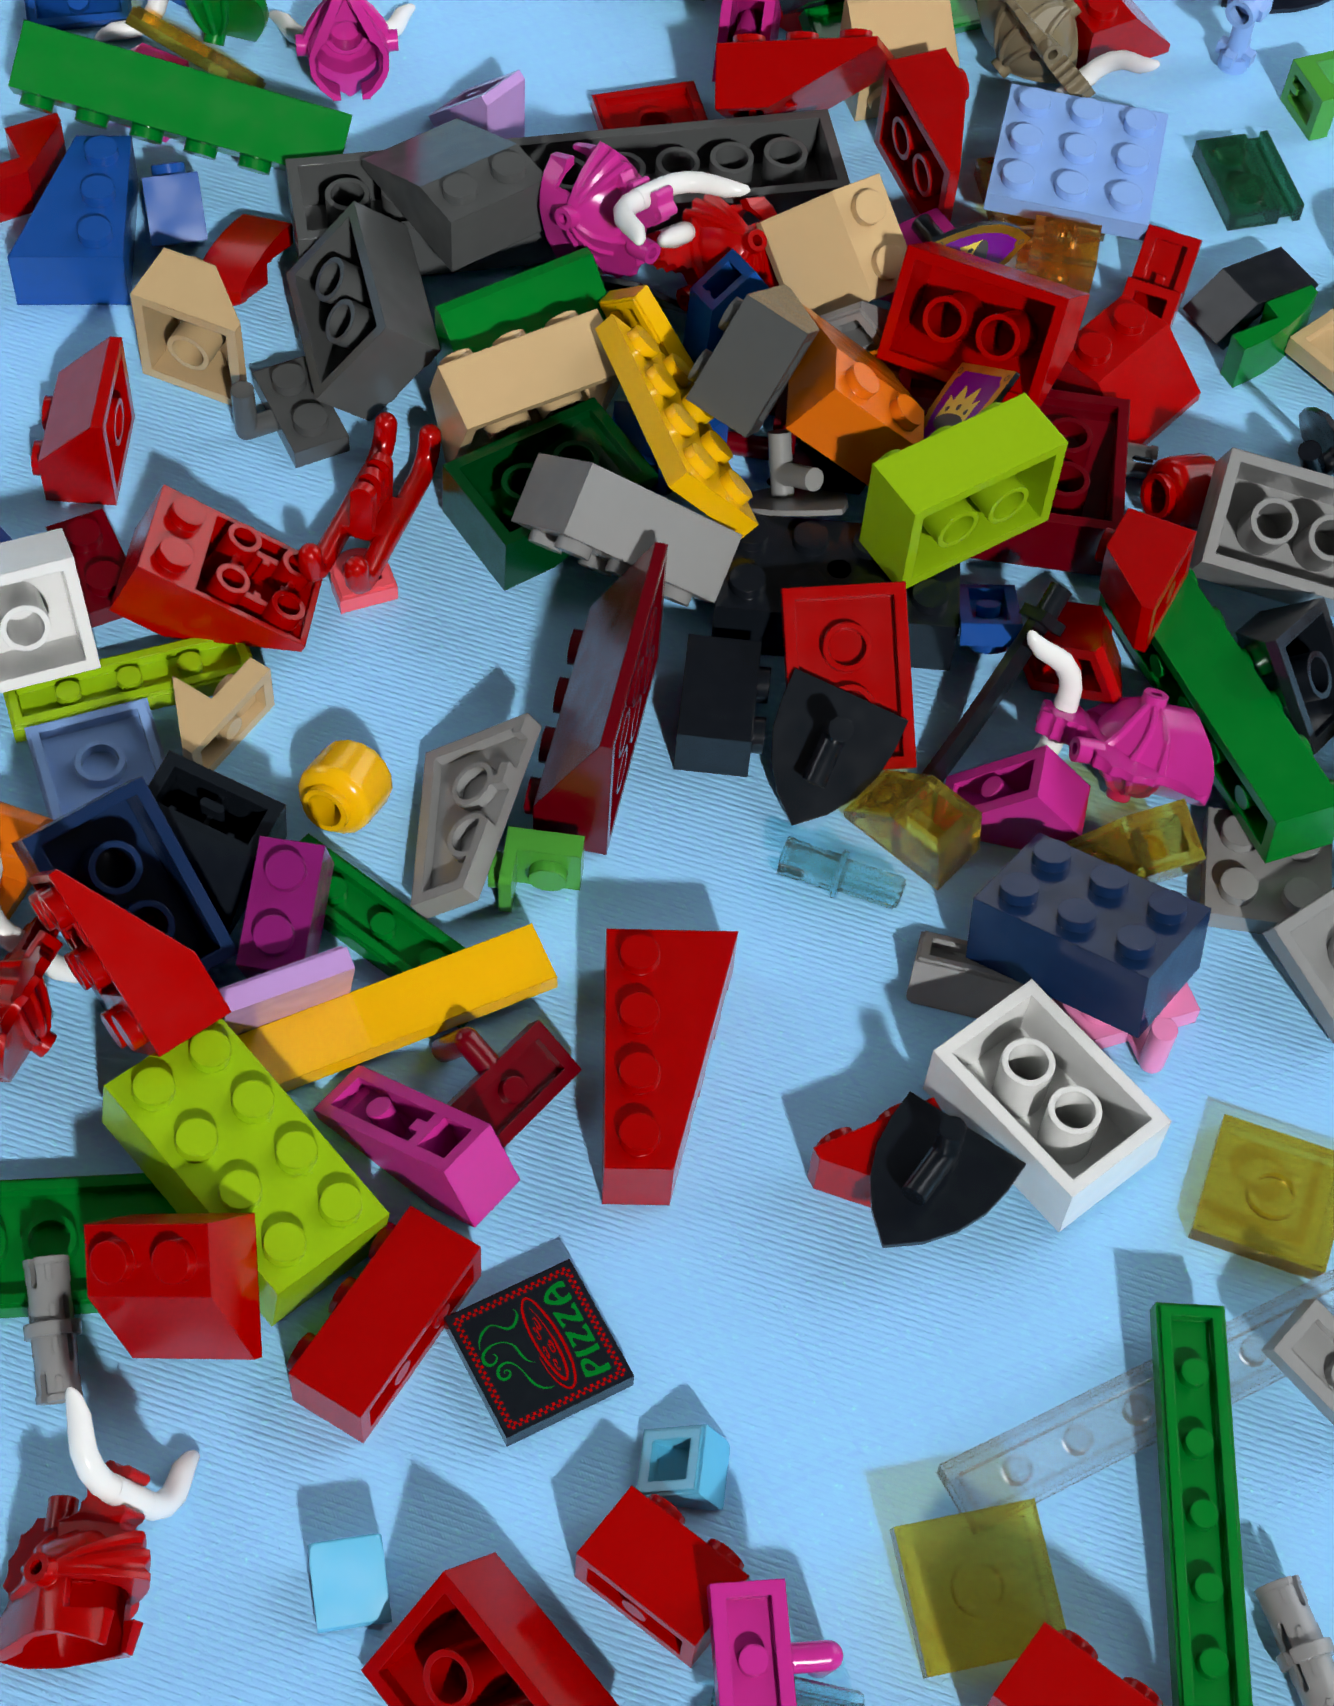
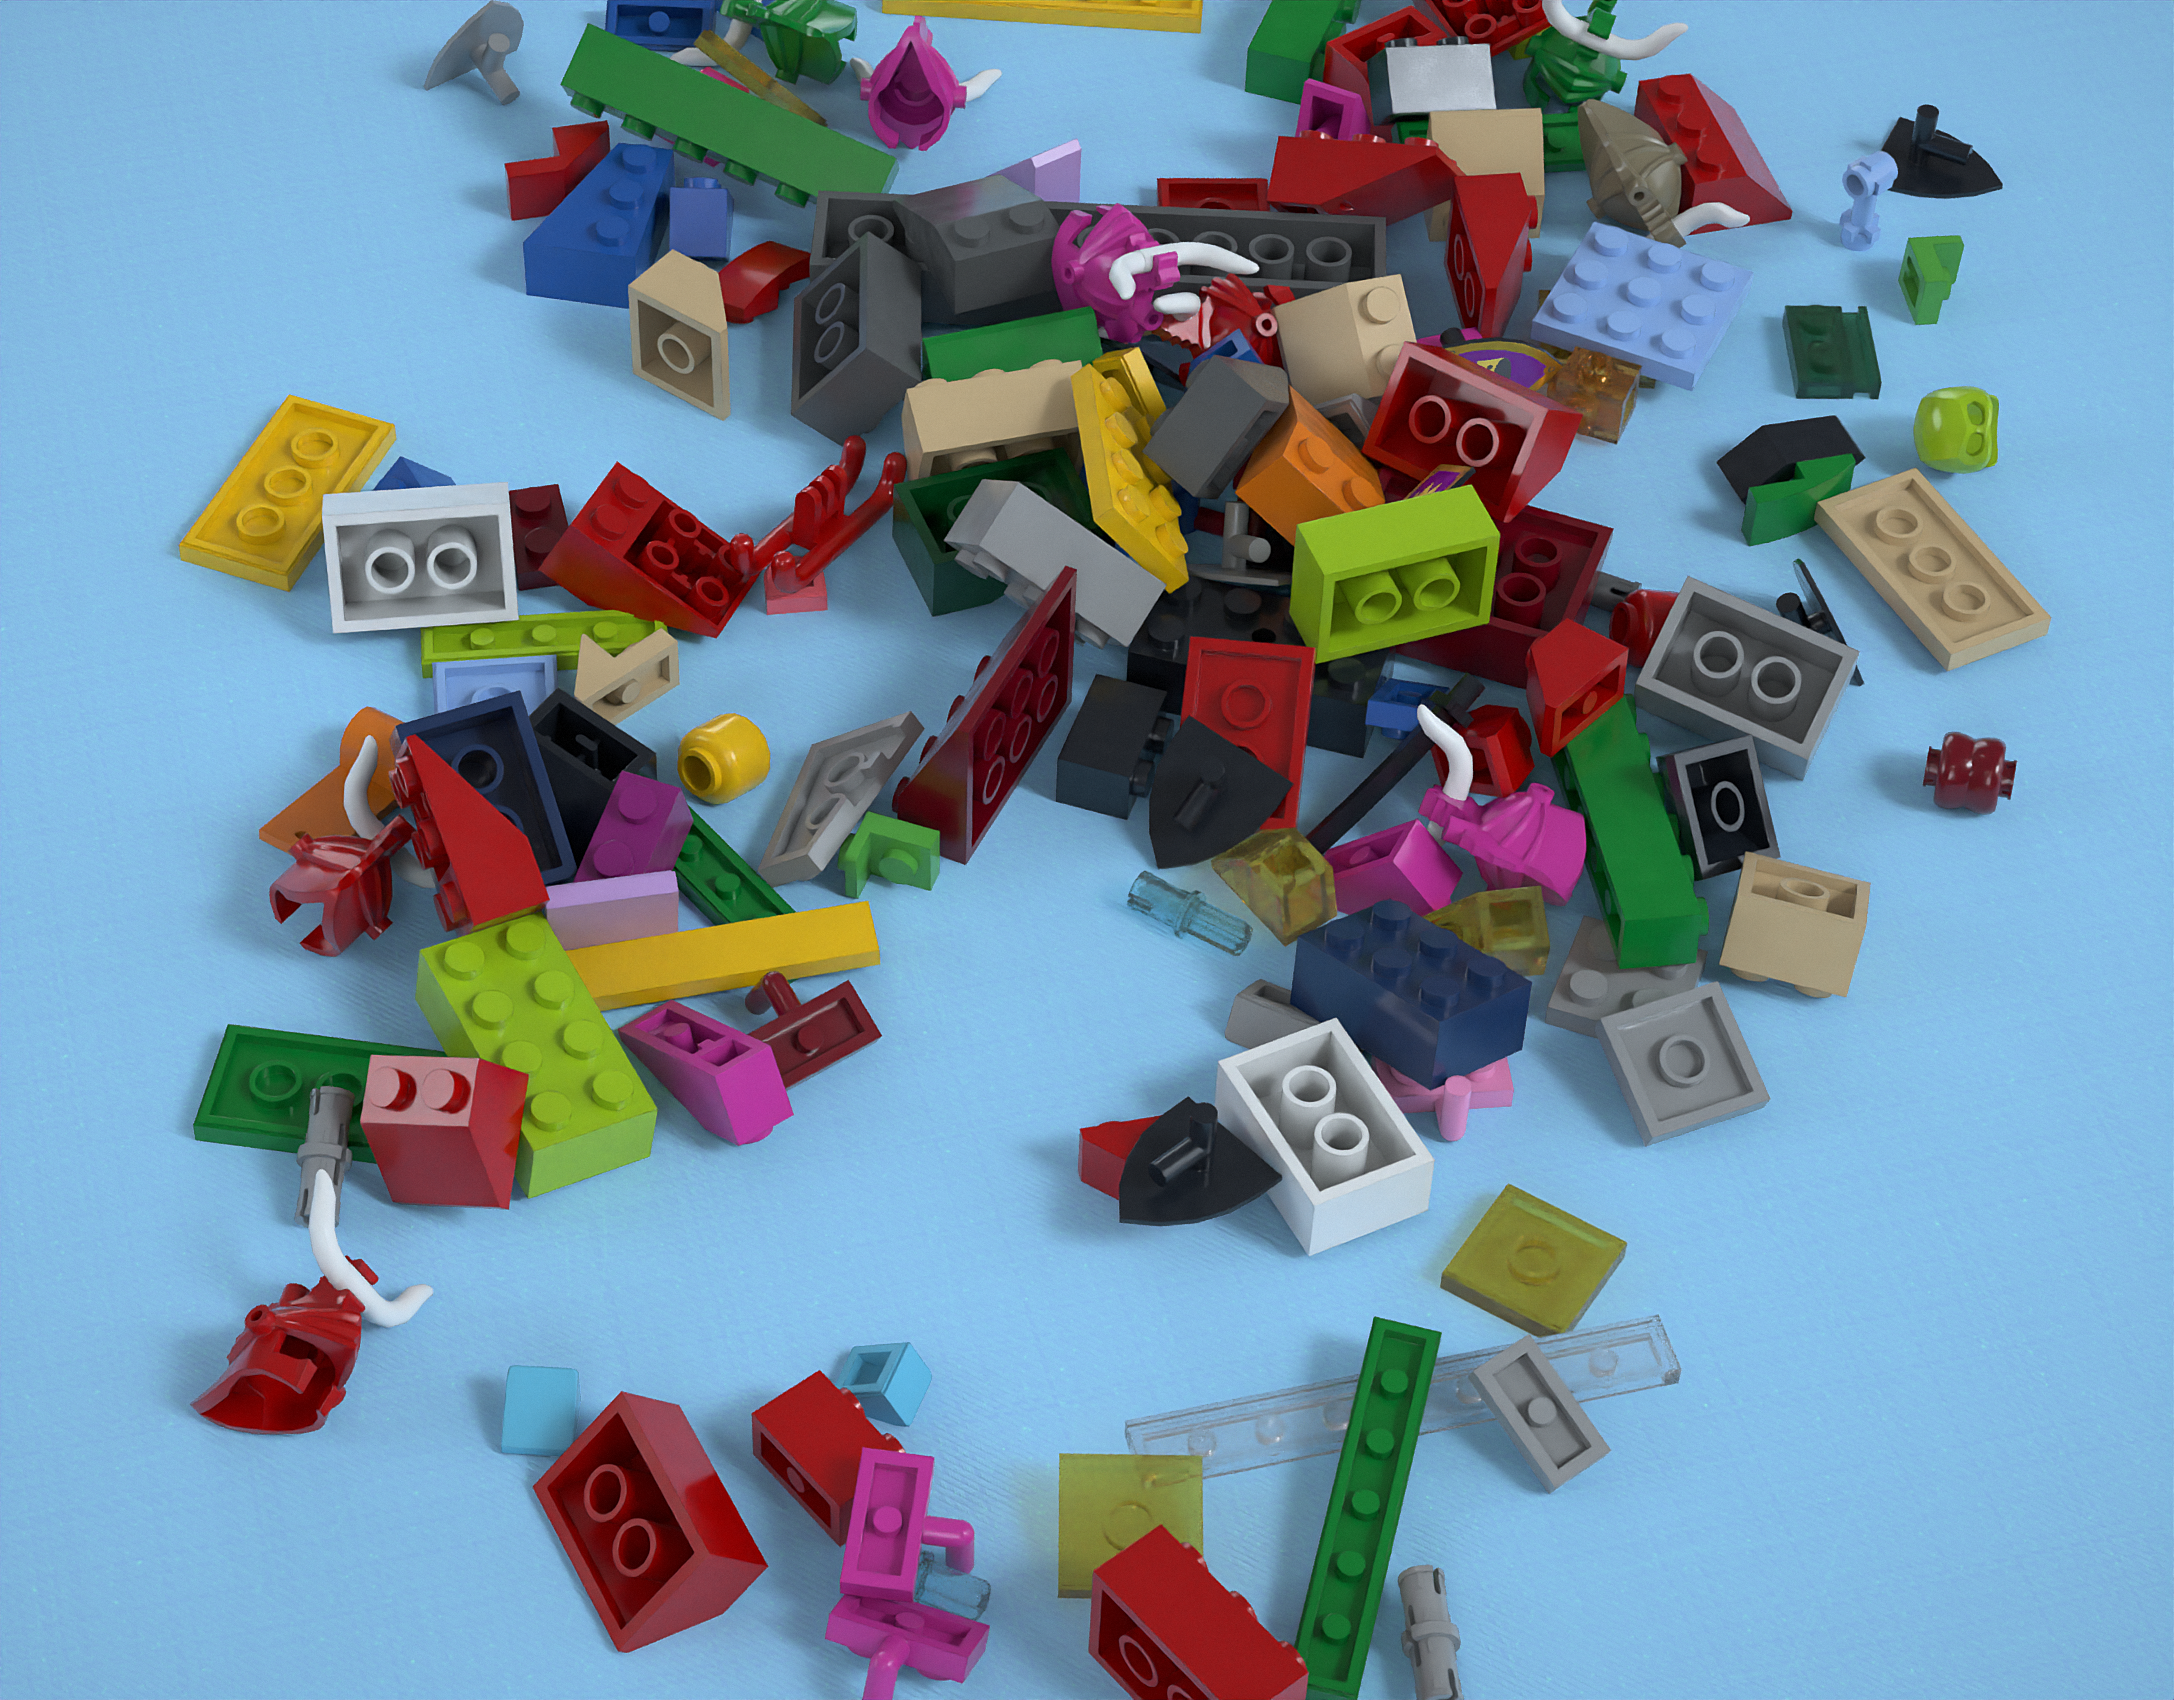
camera: 15 degrees right, 10 degrees down
(87, 428) = (562, 409): red slope -> none
(304, 425) = (777, 440): dark grey plate -> none
(383, 1322) = (632, 1209): red brick -> none
(538, 1352) = (772, 1264): black tile -> none
(657, 1037) = (958, 1023): red wedge -> none
(1135, 358) = (1643, 499): red slope -> none
(1163, 271) = (1701, 434): red slope -> none

